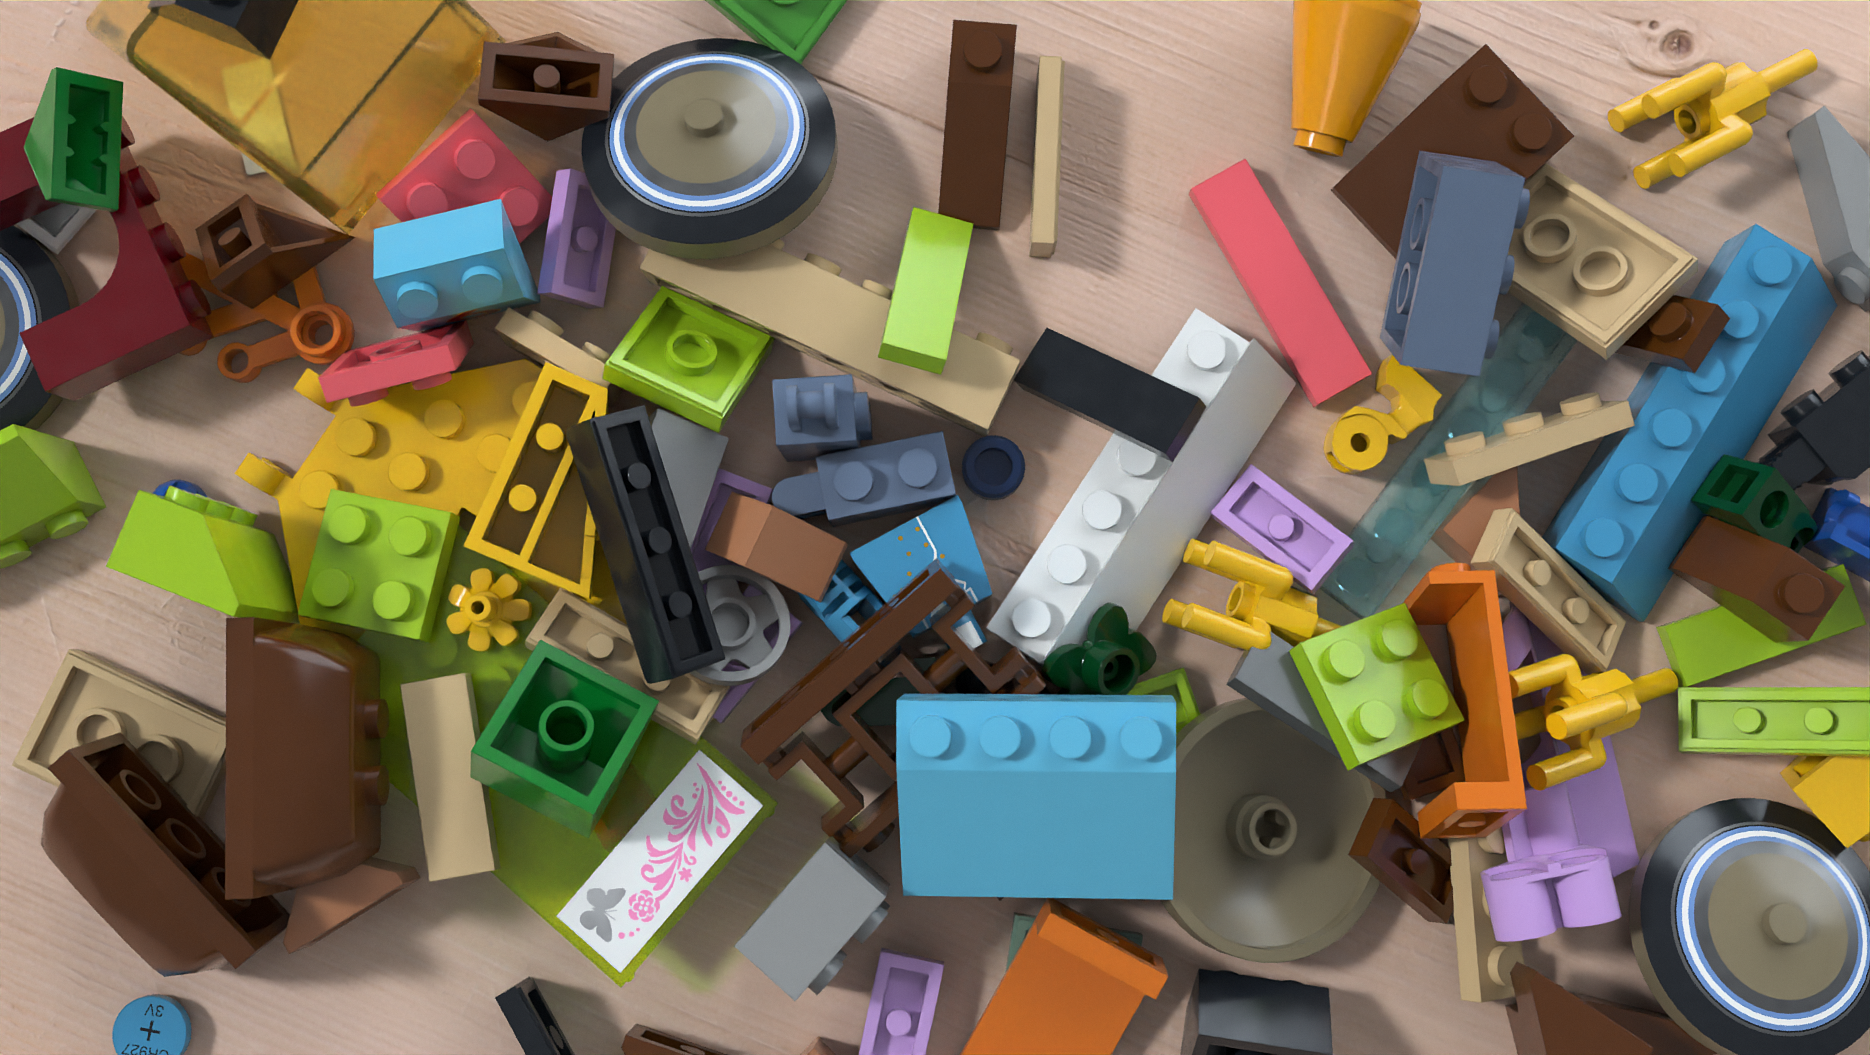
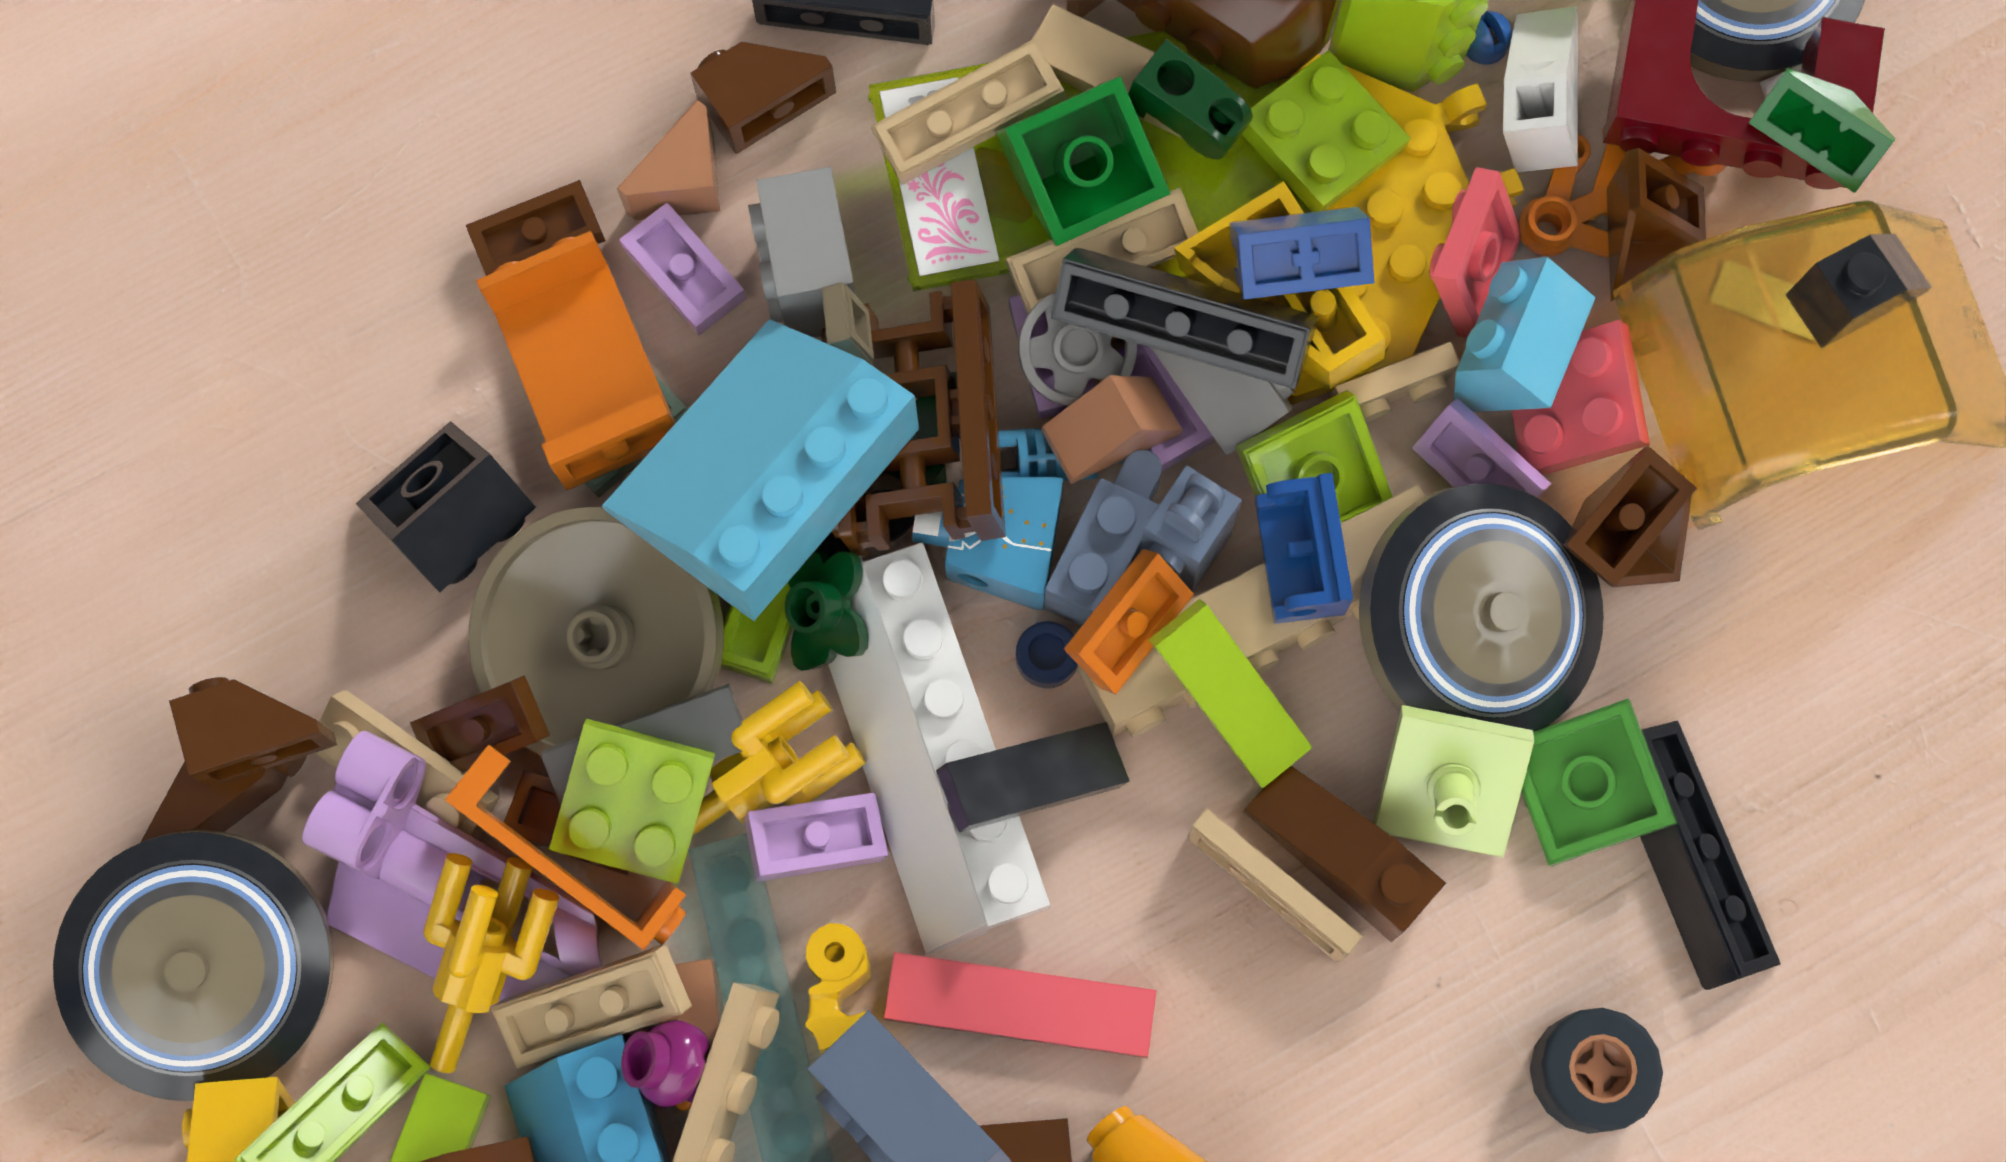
camera: 125 degrees right, 10 degrees down
(196, 418) = (1542, 90): none -> white slope
(442, 686) = (1190, 101): none -> dark green leg
(498, 612) = (1225, 183): yellow plant -> none
(521, 476) = (1303, 252): none -> blue hinge
(586, 875) = (967, 111): none -> tan tile
(769, 309) = (1304, 549): none -> blue hinge
(862, 821) = (847, 322): none -> dark tan tile
(863, 76) = (1453, 780): none -> yellowish green tile
(935, 403) = (1120, 627): none -> orange plate
(1551, 494) = (666, 1062): none -> magenta animal

